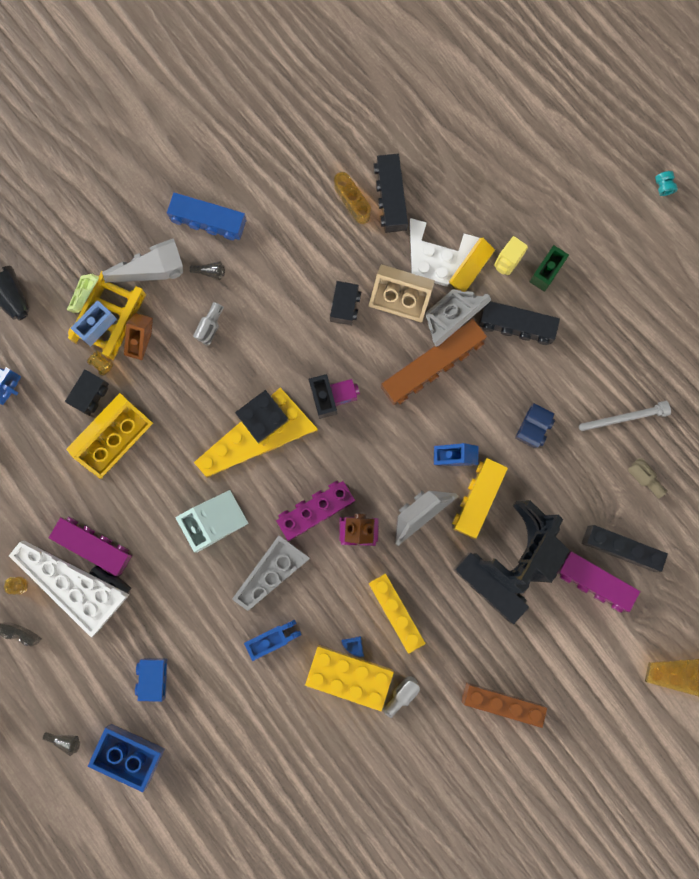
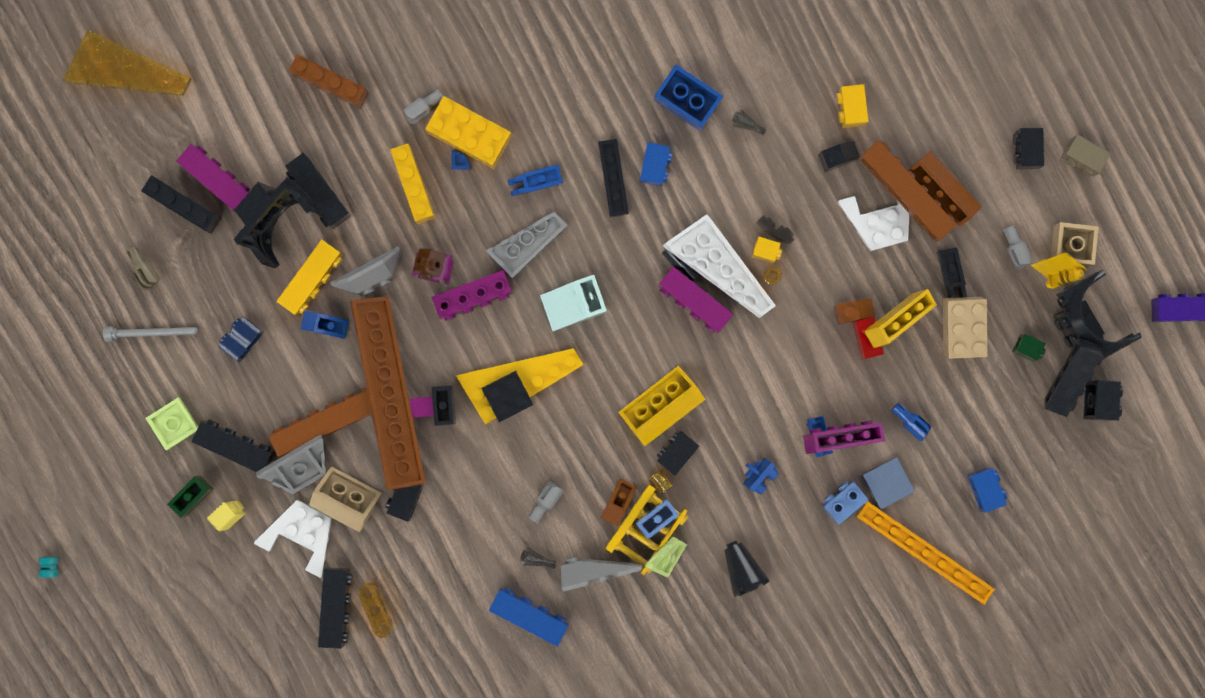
camera: 165 degrees left, 5 degrees up
(25, 611) = (766, 250): none -> yellow brick
(193, 657) = (613, 178): none -> black plate
(380, 398) = (387, 393): none -> dark orange plate
(472, 265) = (267, 515): yellow tile -> none
(582, 334) = (172, 423): none -> yellowish green plate

